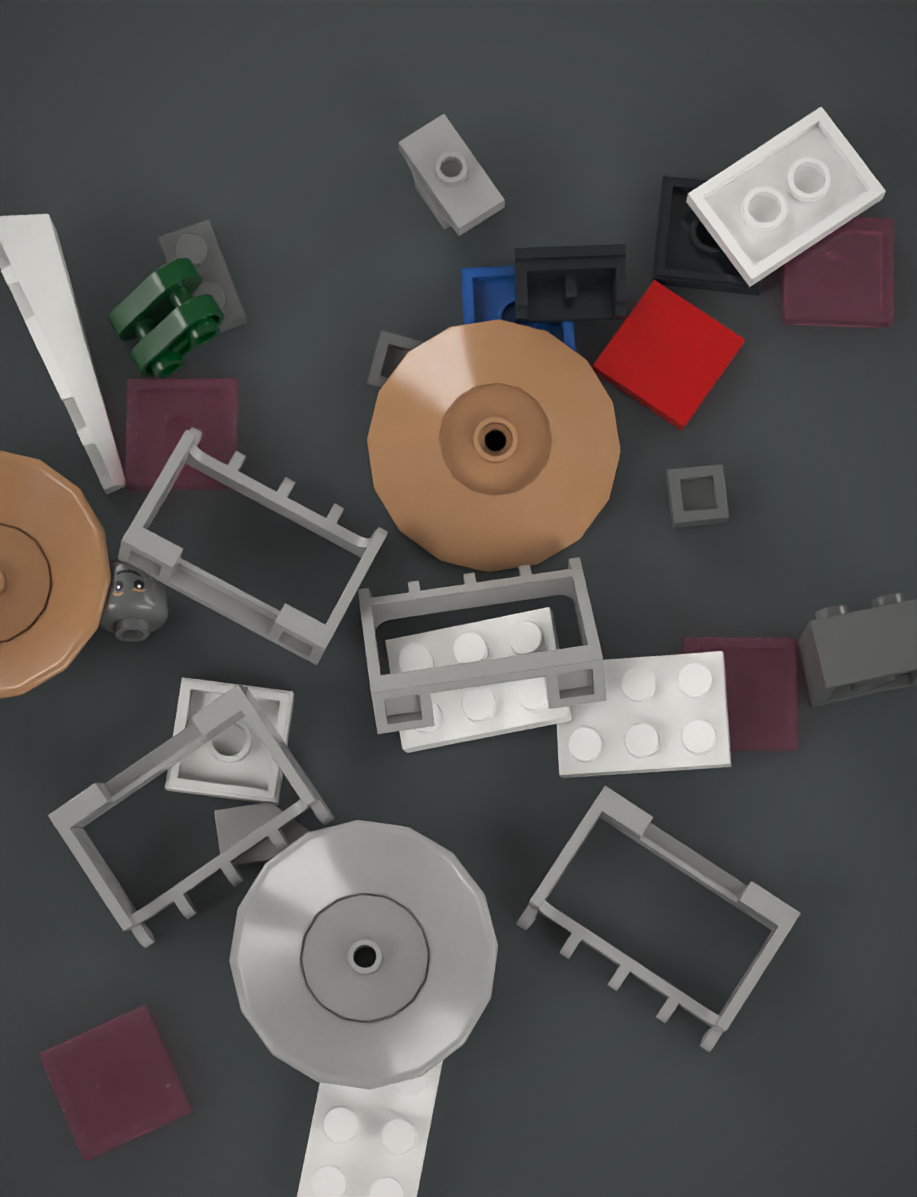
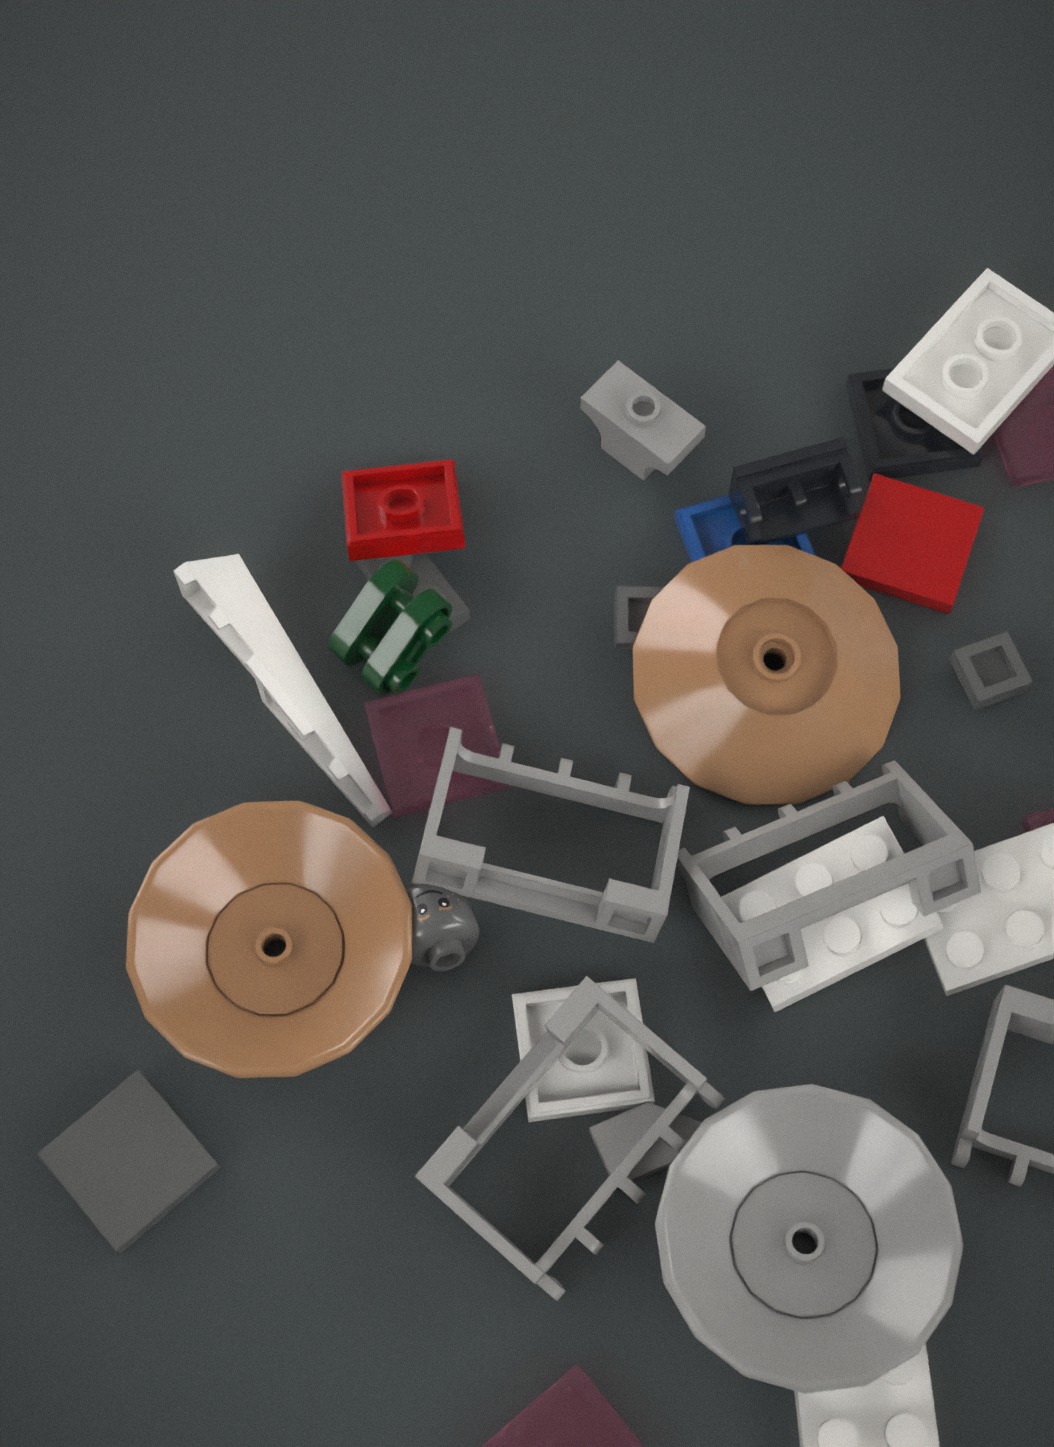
camera: 15 degrees left, 10 degrees down
(210, 205) = (402, 510): none -> red tile

